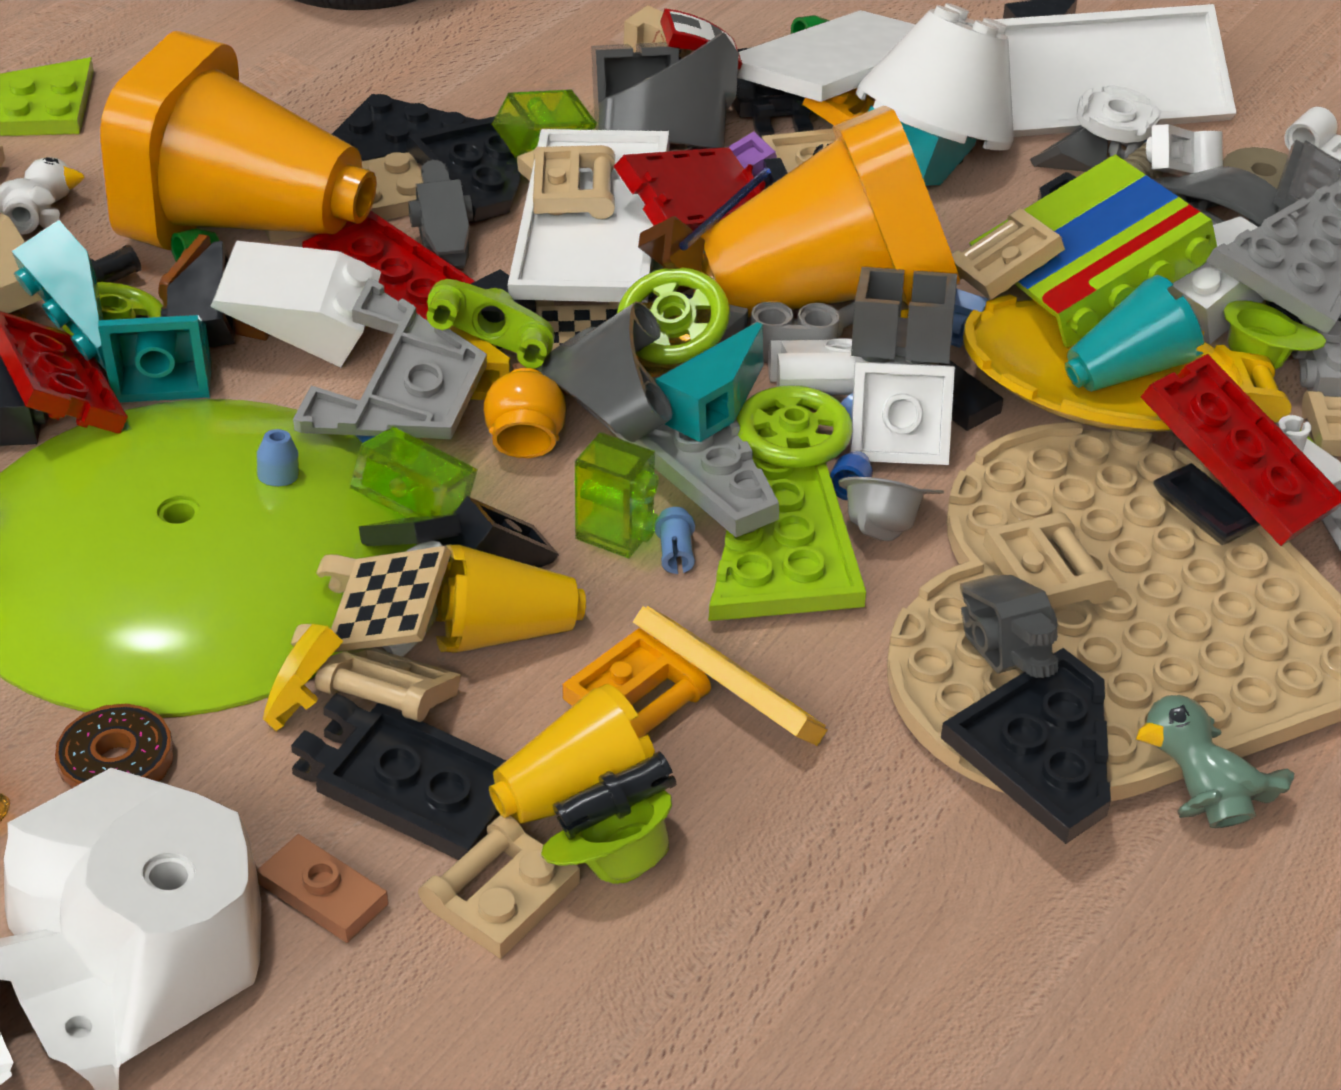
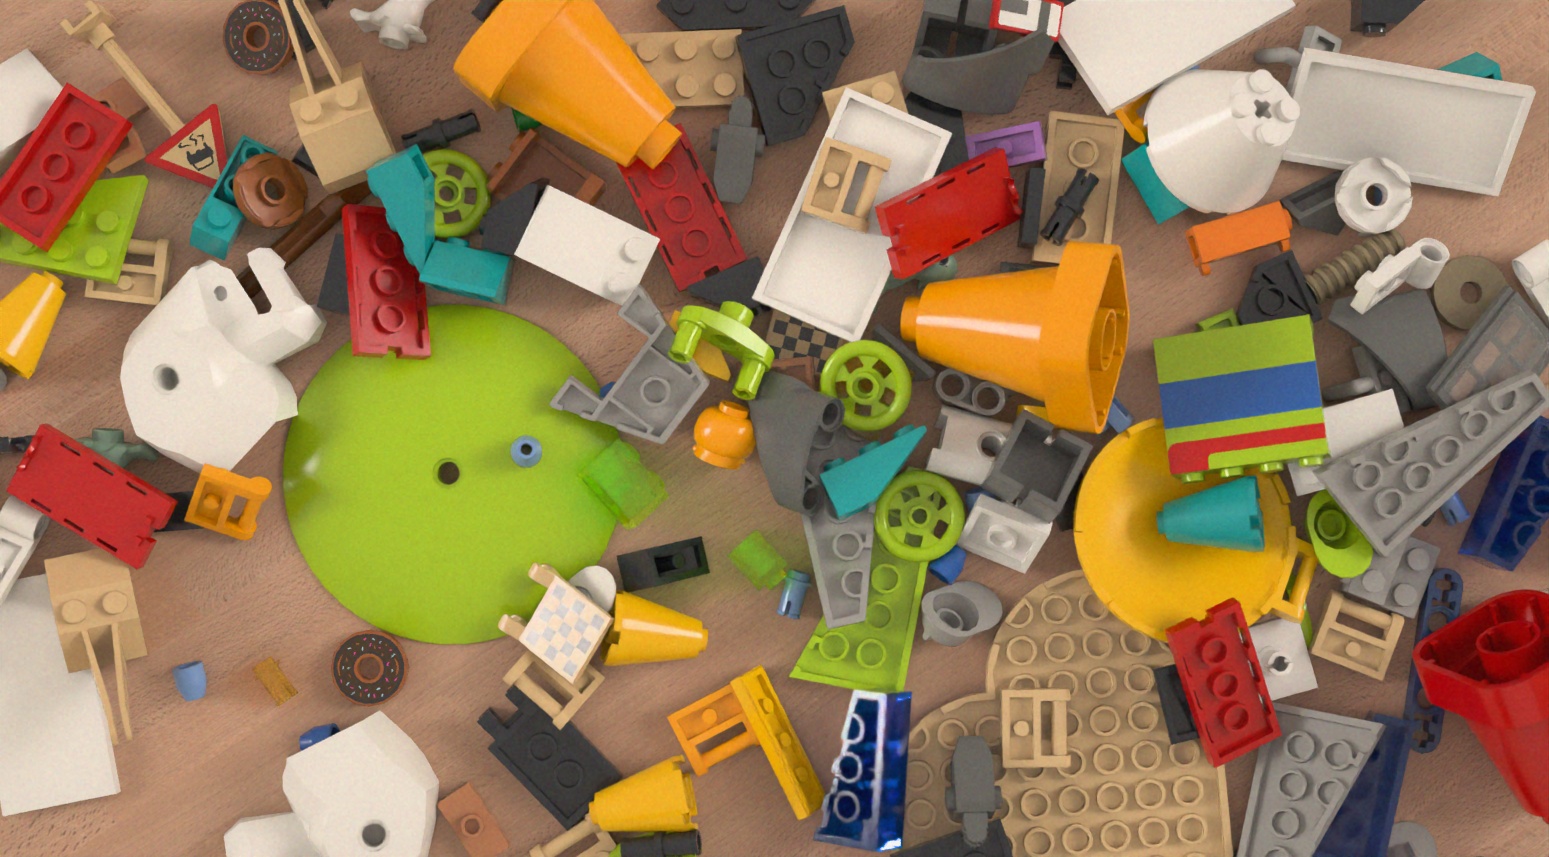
camera: 15 degrees right, 45 degrees up
(300, 665) = (499, 660): yellow slope -> none
(410, 530) = (602, 551): tile -> none
(527, 113) = (862, 49): clear neon green brick -> none
(663, 242) = (894, 323): reddish brown panel -> none
(724, 209) = (957, 265): clear blue axle -> none
(869, 659) = (870, 774): none -> clear blue wedge
(1004, 175) = (1239, 235): none -> orange brick
(1008, 254) = (1164, 399): tan plate -> none

